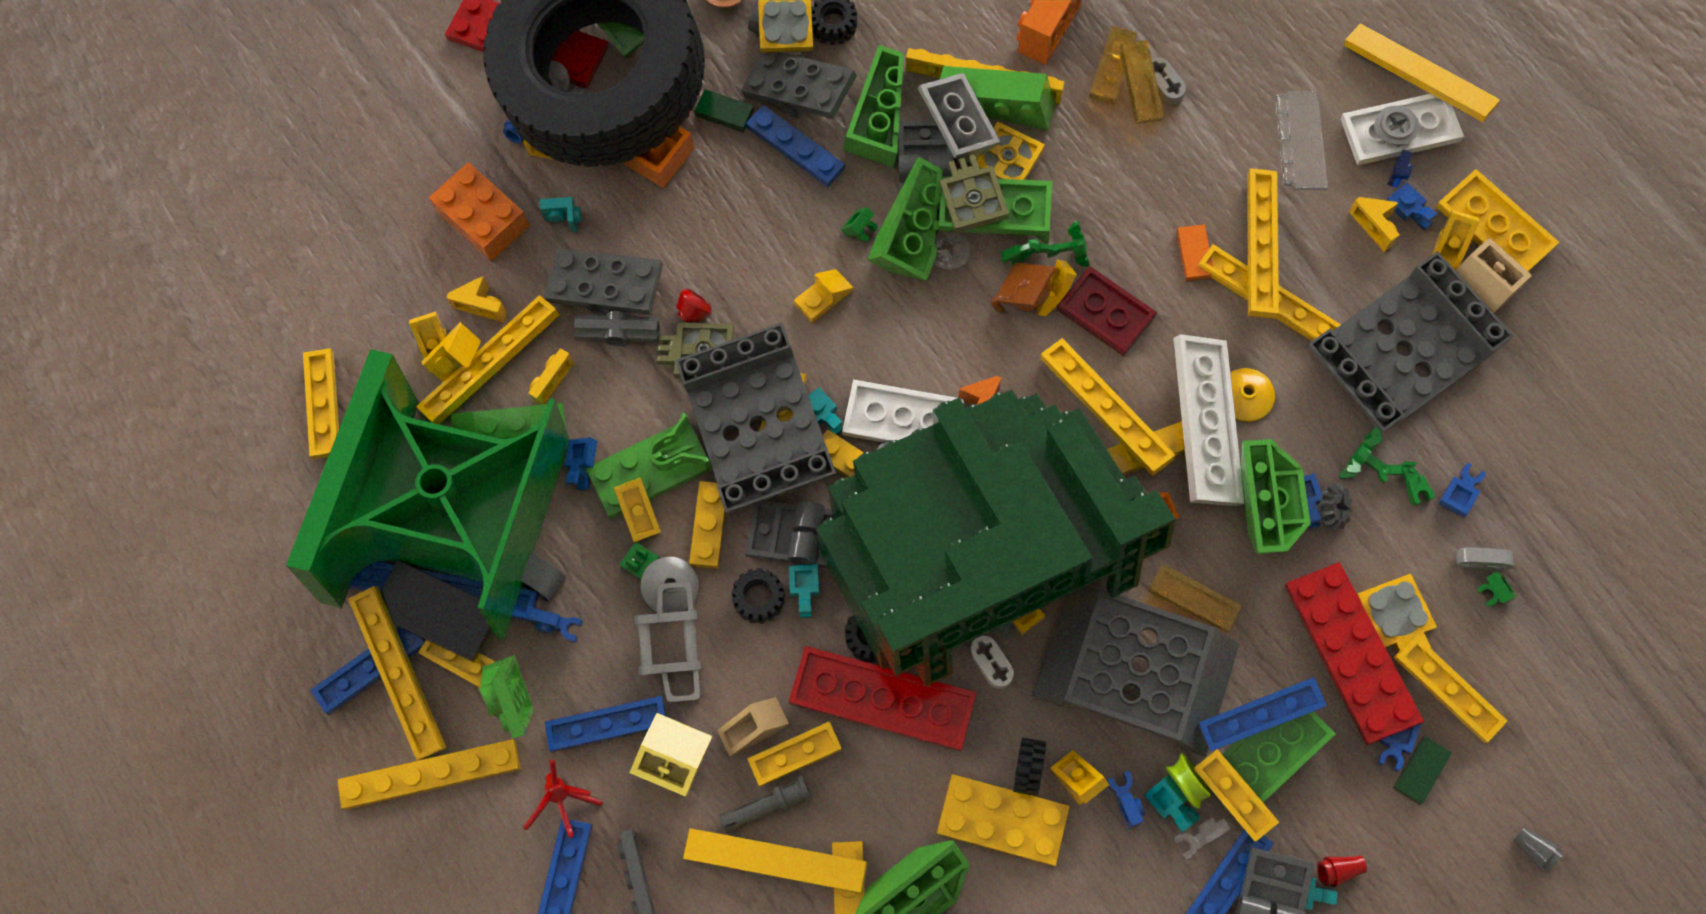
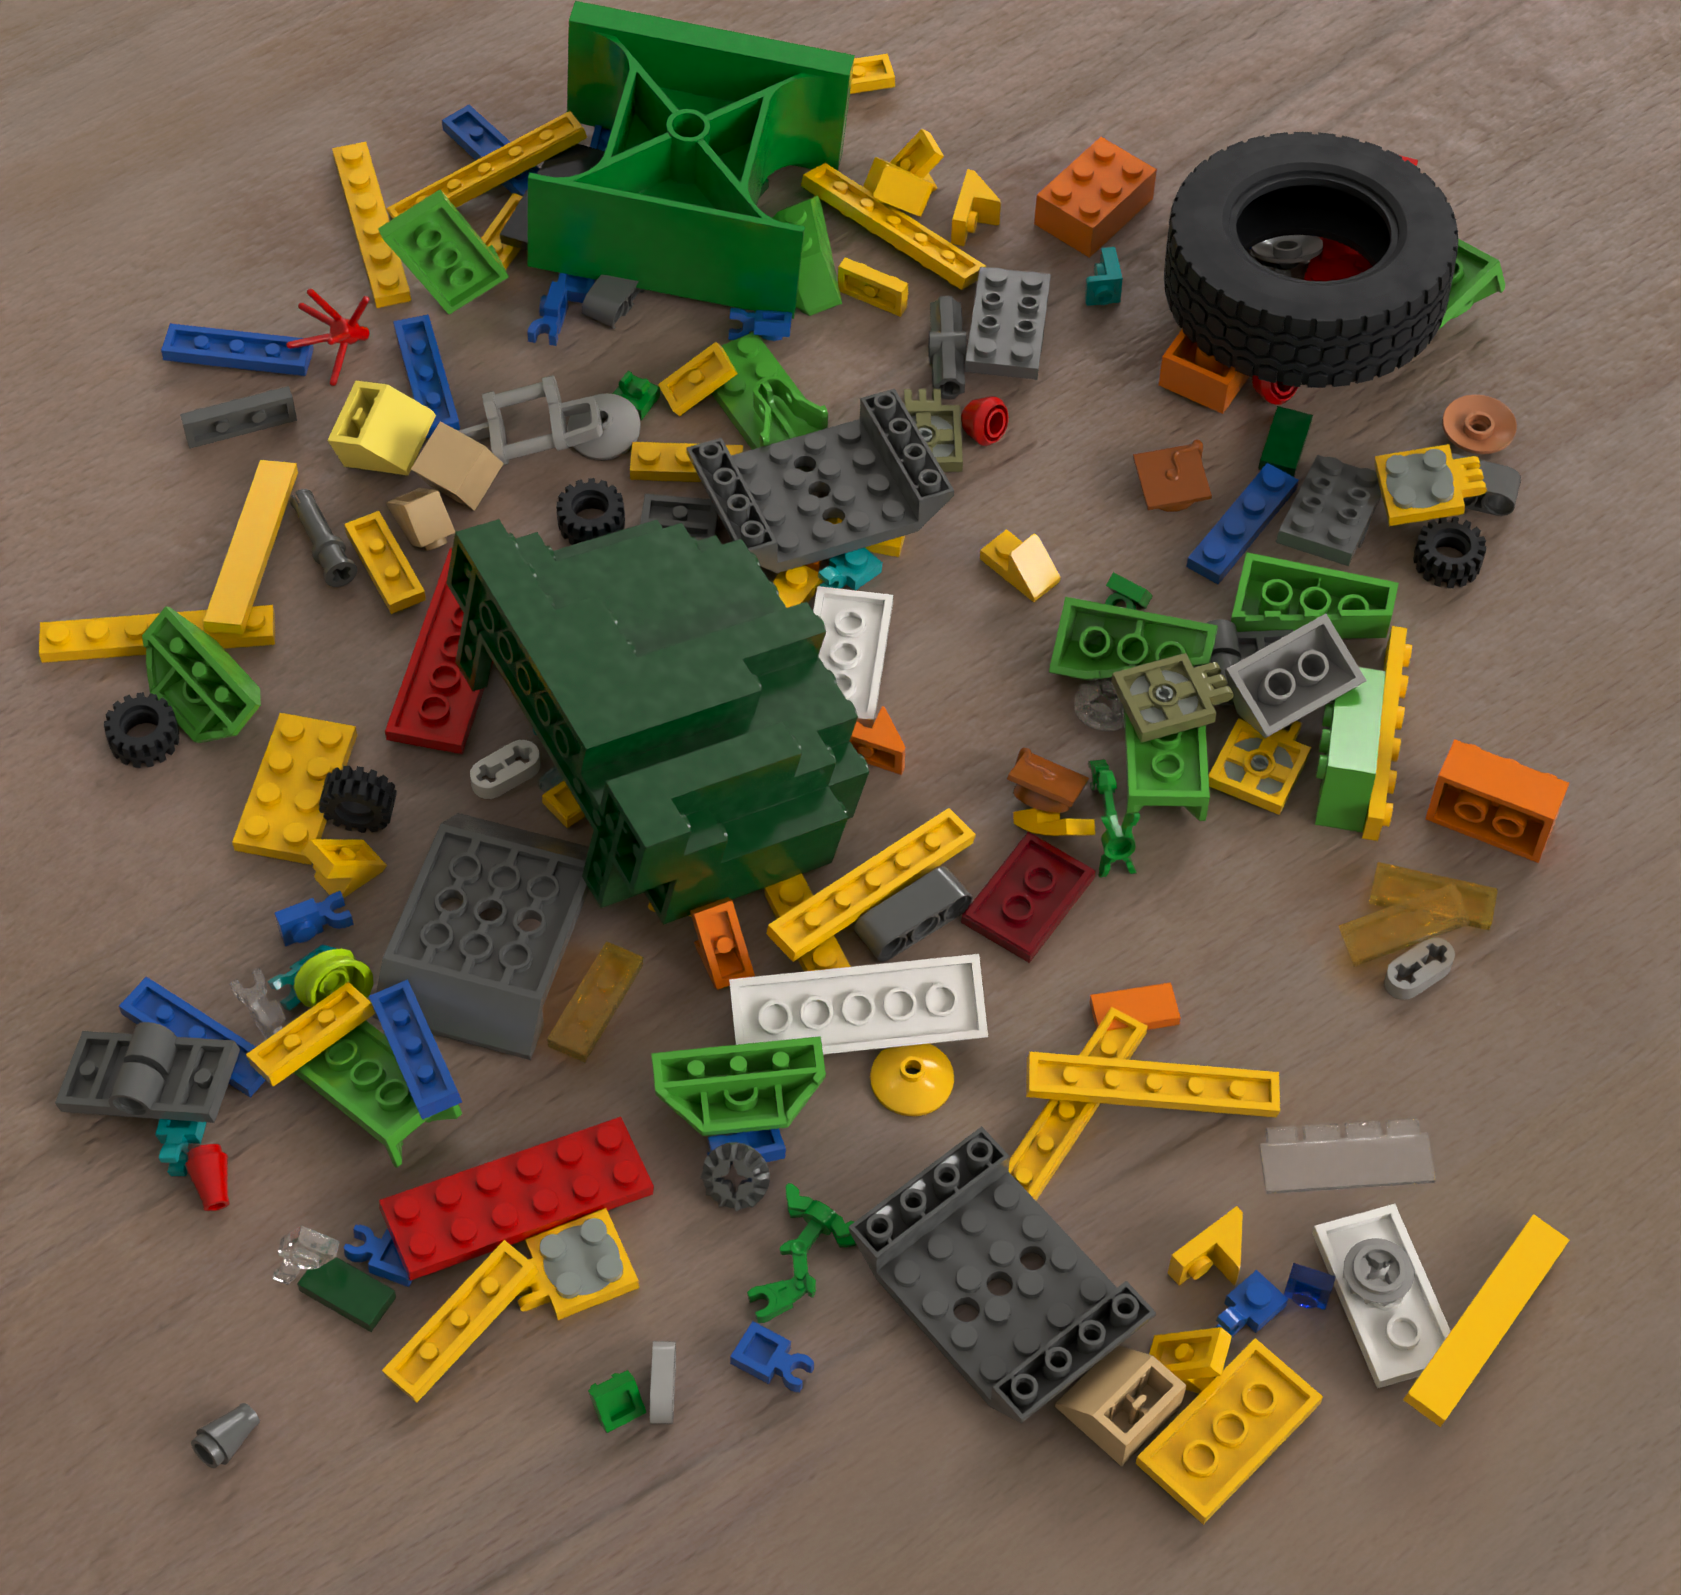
camera: 80 degrees right, 15 degrees down
(715, 694) = (457, 466): none -> tan head
(756, 184) = (1173, 477): none -> dark orange hat
(1125, 380) = (913, 914): none -> dark grey beam
(1411, 793) = (304, 1250): none -> clear plate

